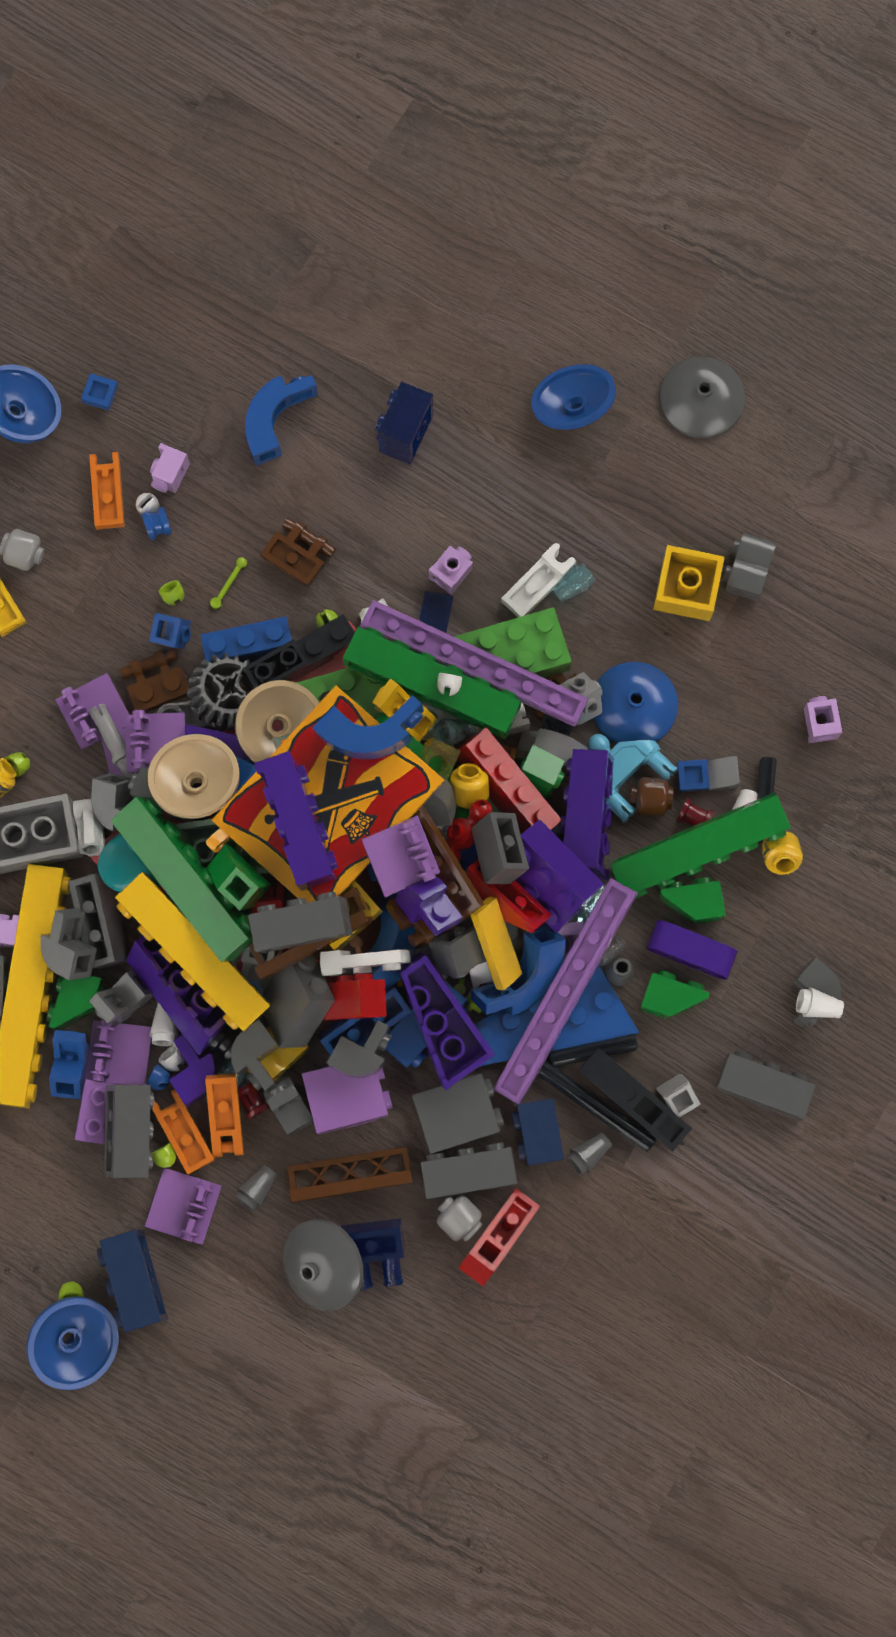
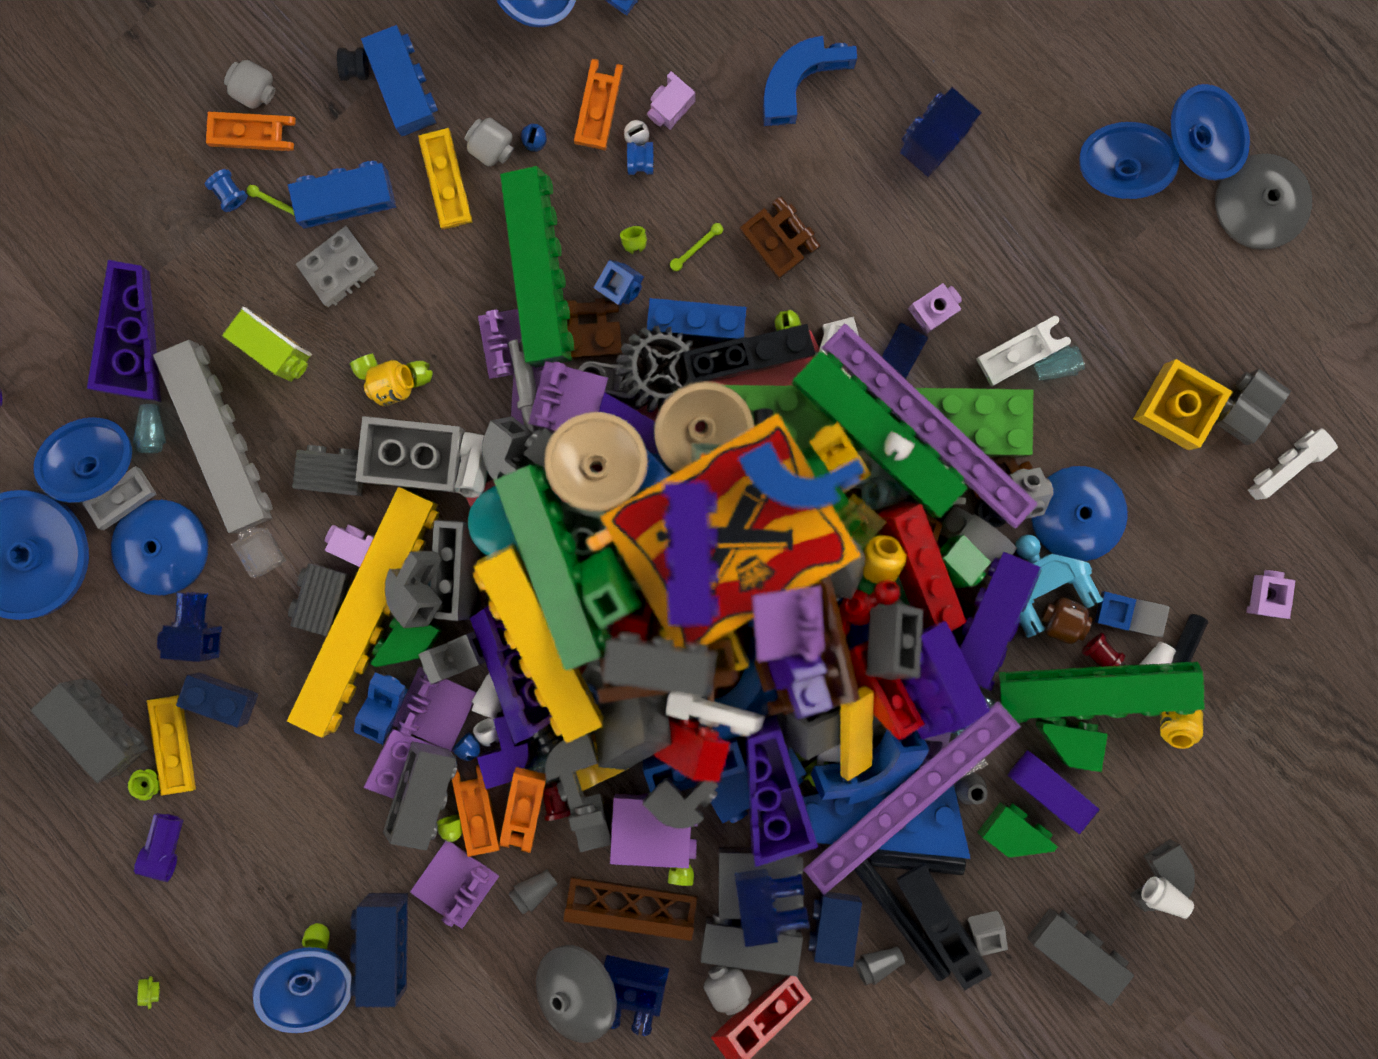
camera: 20 degrees right, 10 degrees up
(65, 535) = (539, 140): none -> blue hinge
(93, 639) = (536, 266): none -> green brick
(385, 1129) = (681, 876): none -> lime hinge
(458, 1128) = (755, 896): none -> clear blue brick
(634, 353) = (1210, 132): none -> blue dish
(812, 587) = (1310, 449): none -> white plate

